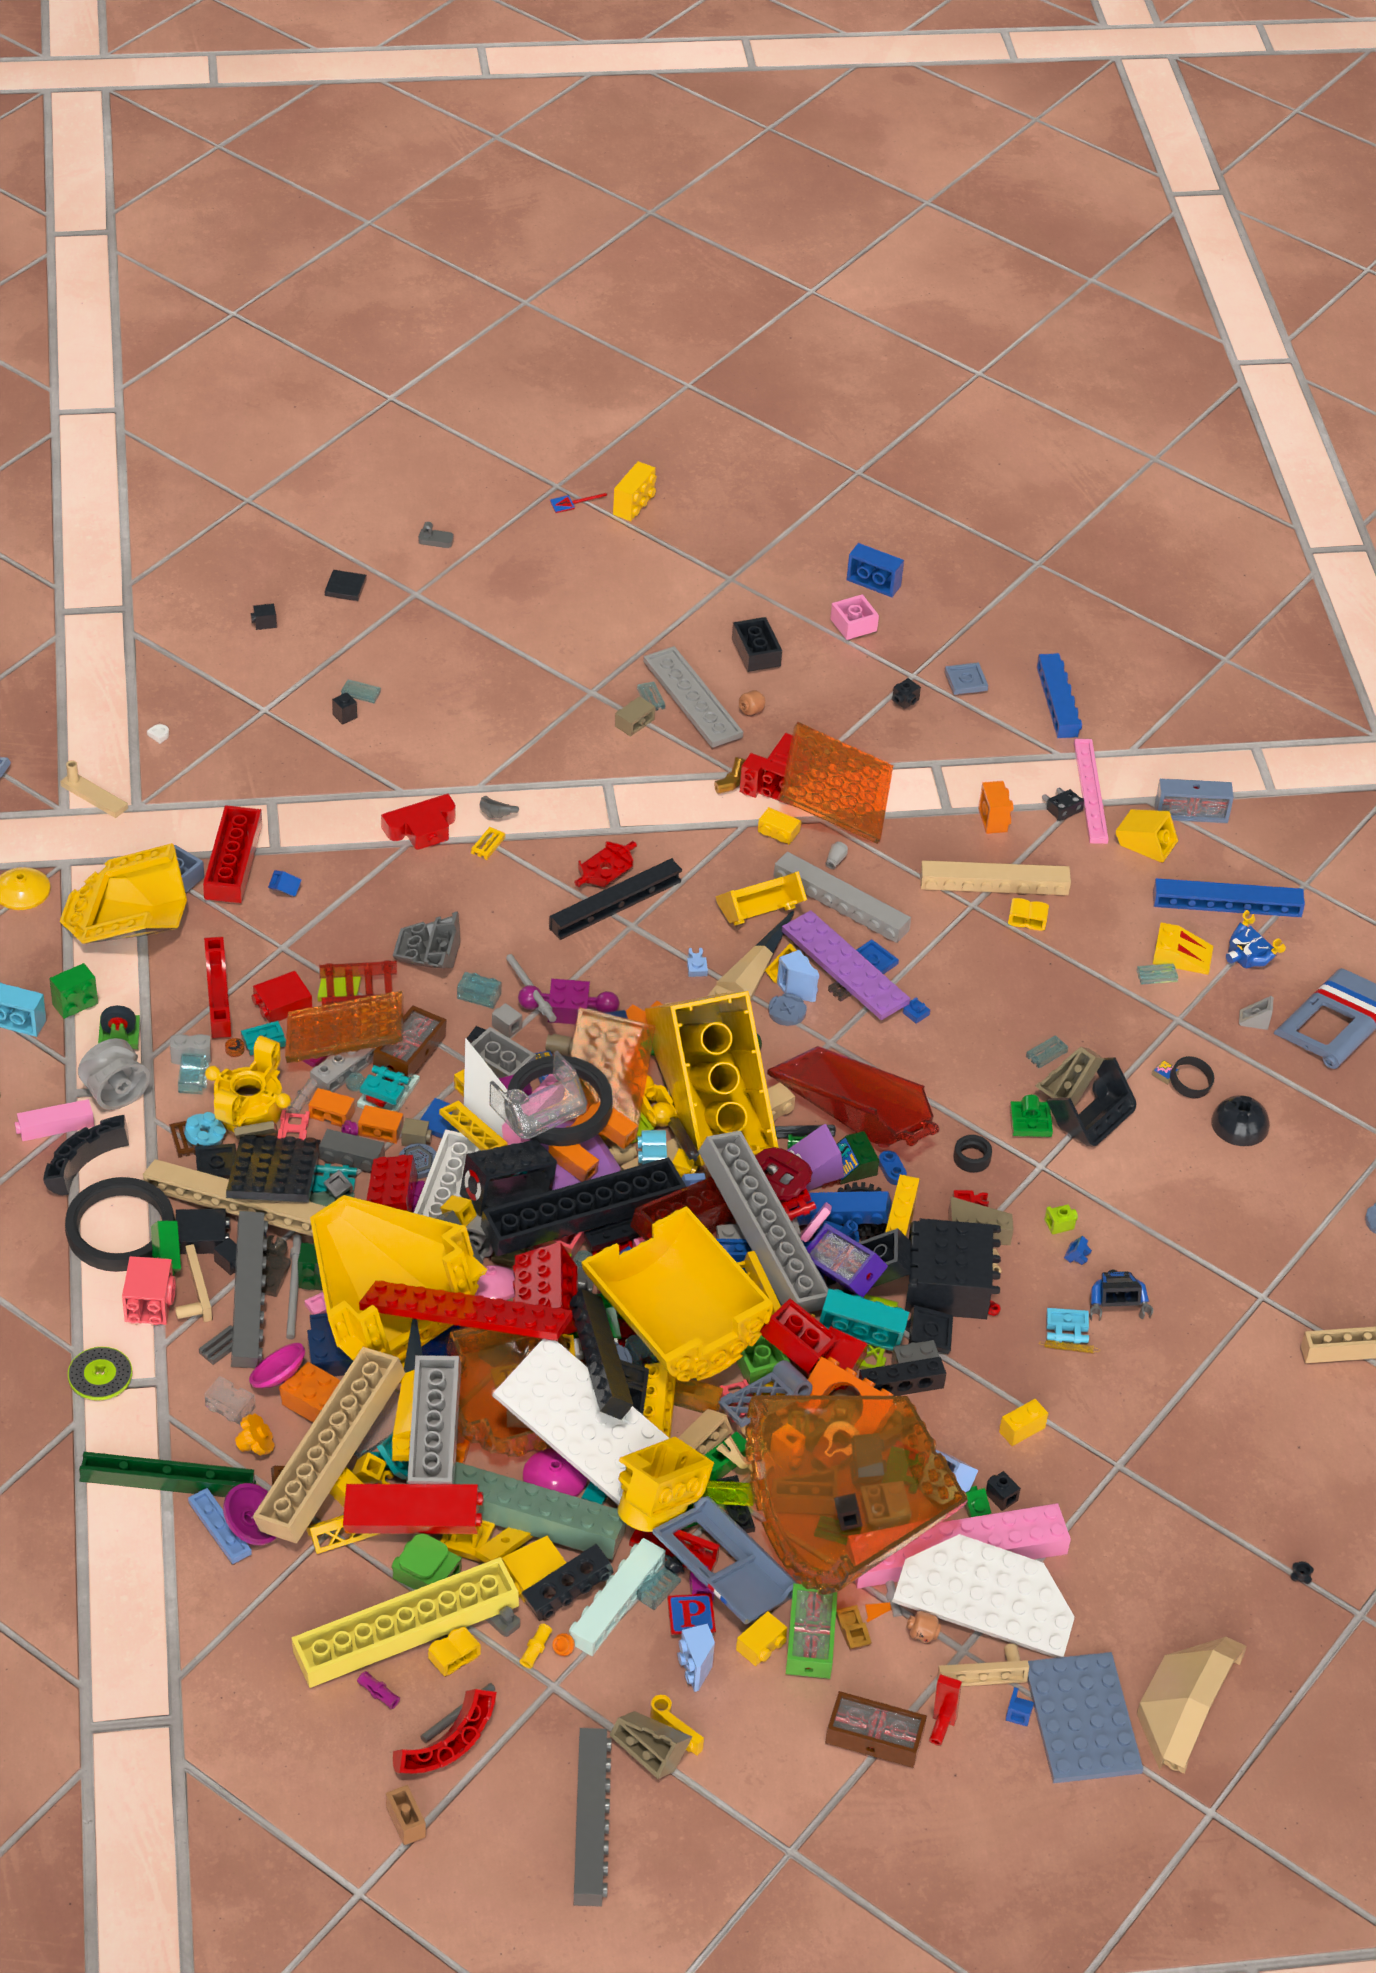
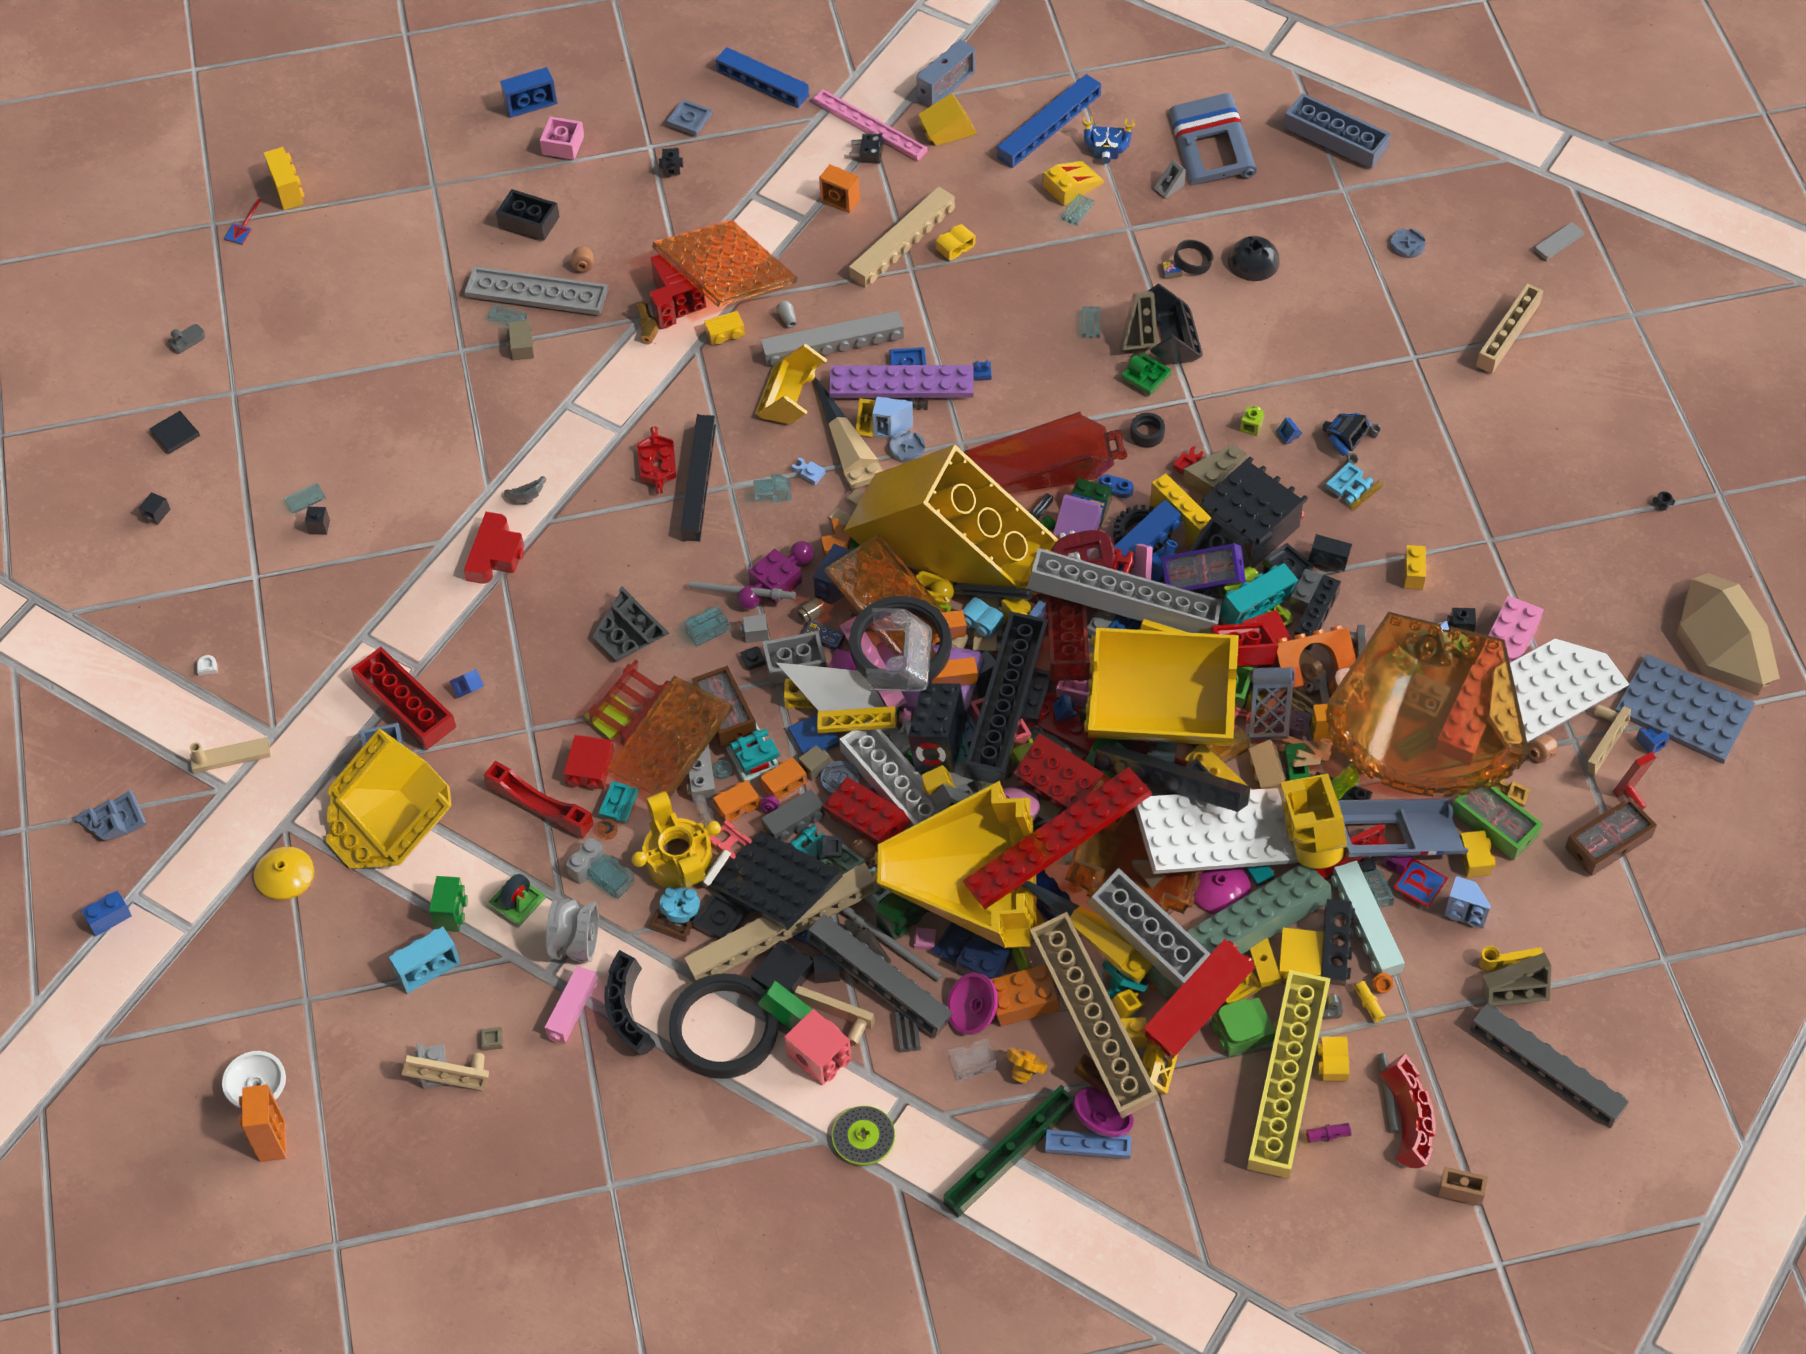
camera: 45 degrees left, 10 degrees up
(491, 844) = (560, 532): yellow tile -> none
(655, 950) = (777, 488): none -> clear light blue brick
(848, 1512) = (1427, 722): black brick -> none
(974, 1351) = (1330, 552): none -> black brick

